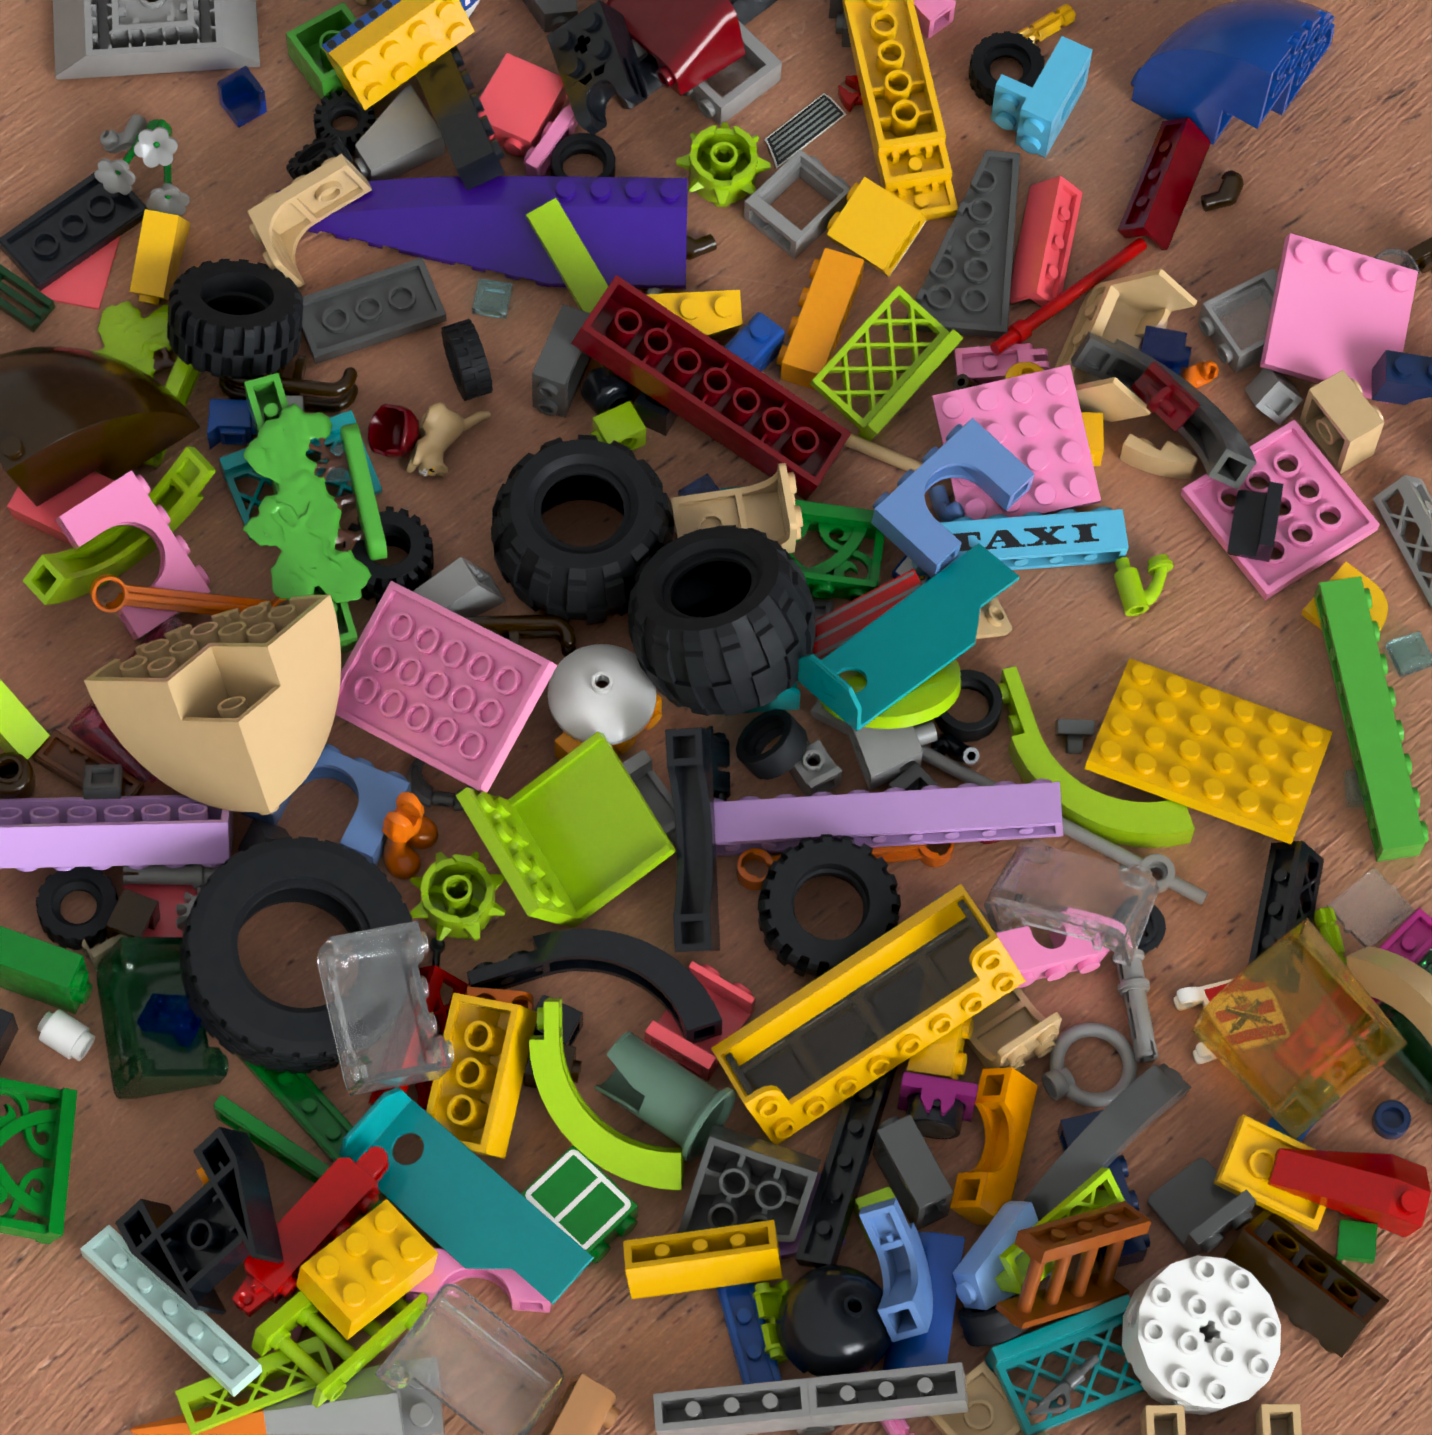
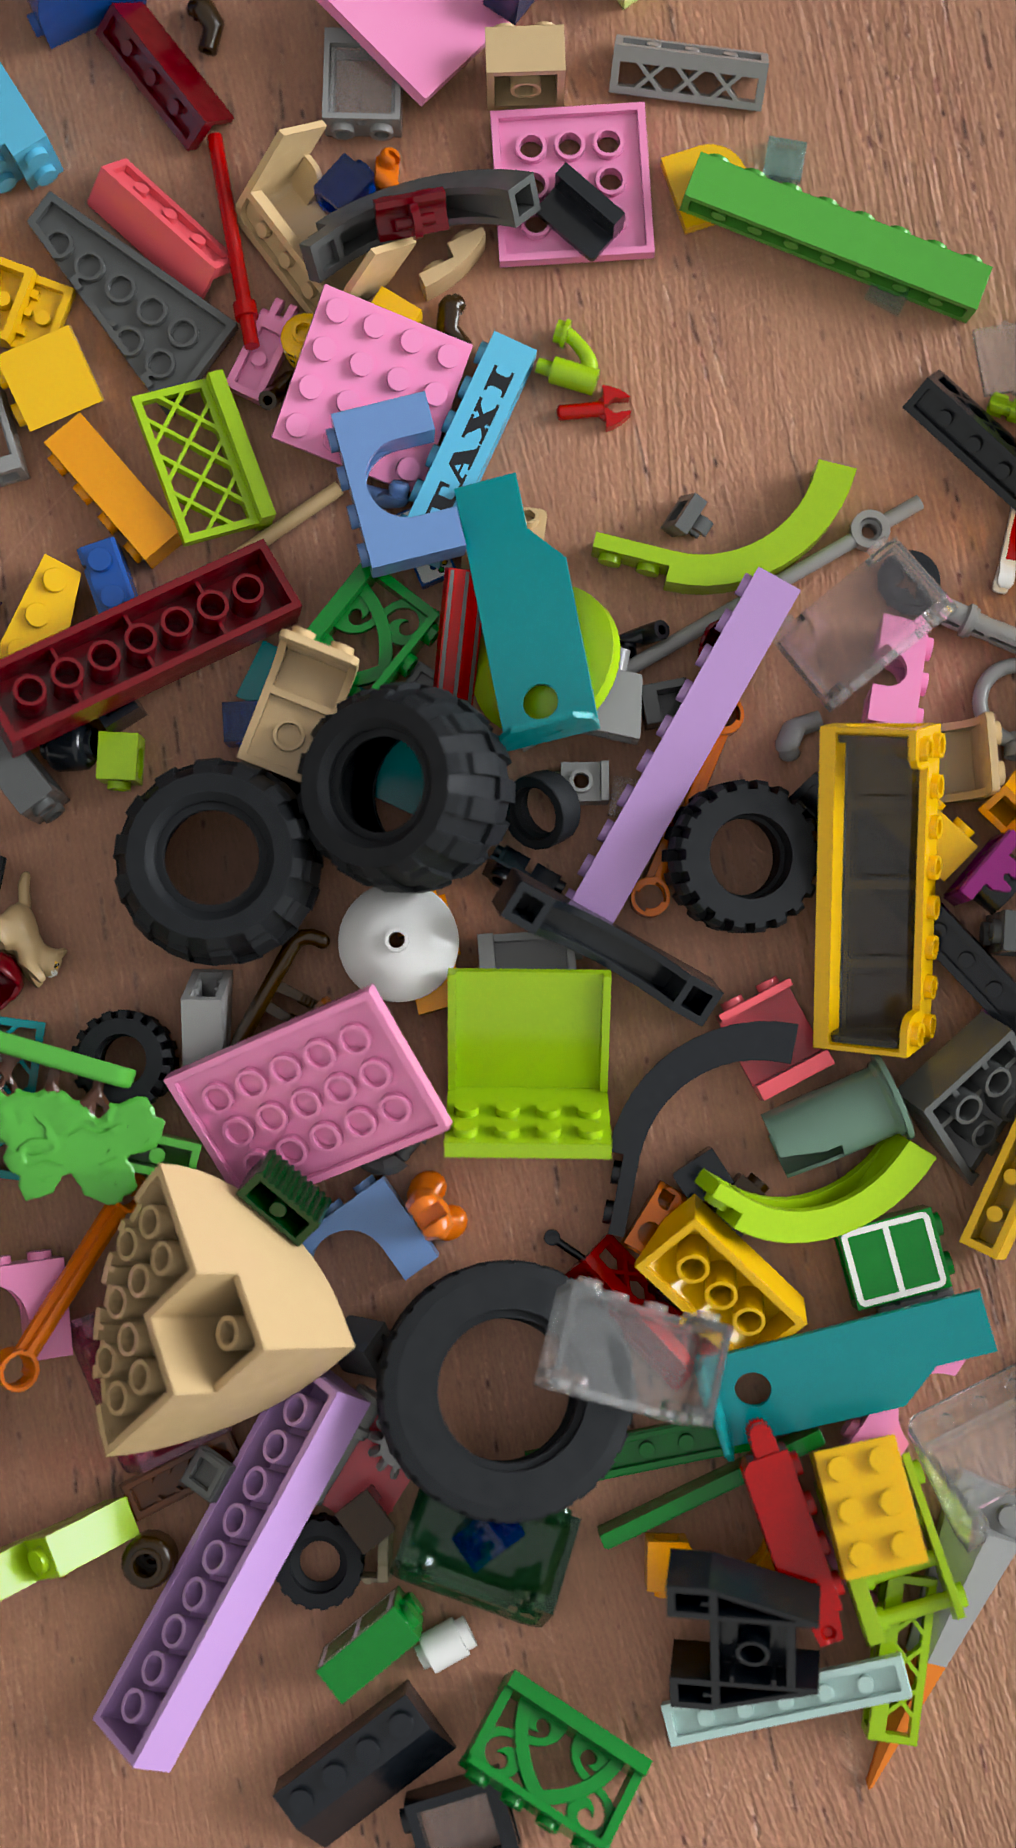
camera: 55 degrees left, 20 degrees up
(353, 712) = (284, 1197): none -> dark green brick
(444, 884) = (523, 1221): lime brick -> none
(976, 730) = (622, 577): black tyre -> none
(1112, 479) = (448, 316): none -> dark brown arm
(1118, 625) = (598, 409): none -> red bar
(1209, 750) = (782, 405): yellow plate -> none
(1273, 395) = (451, 114): light grey panel -> none

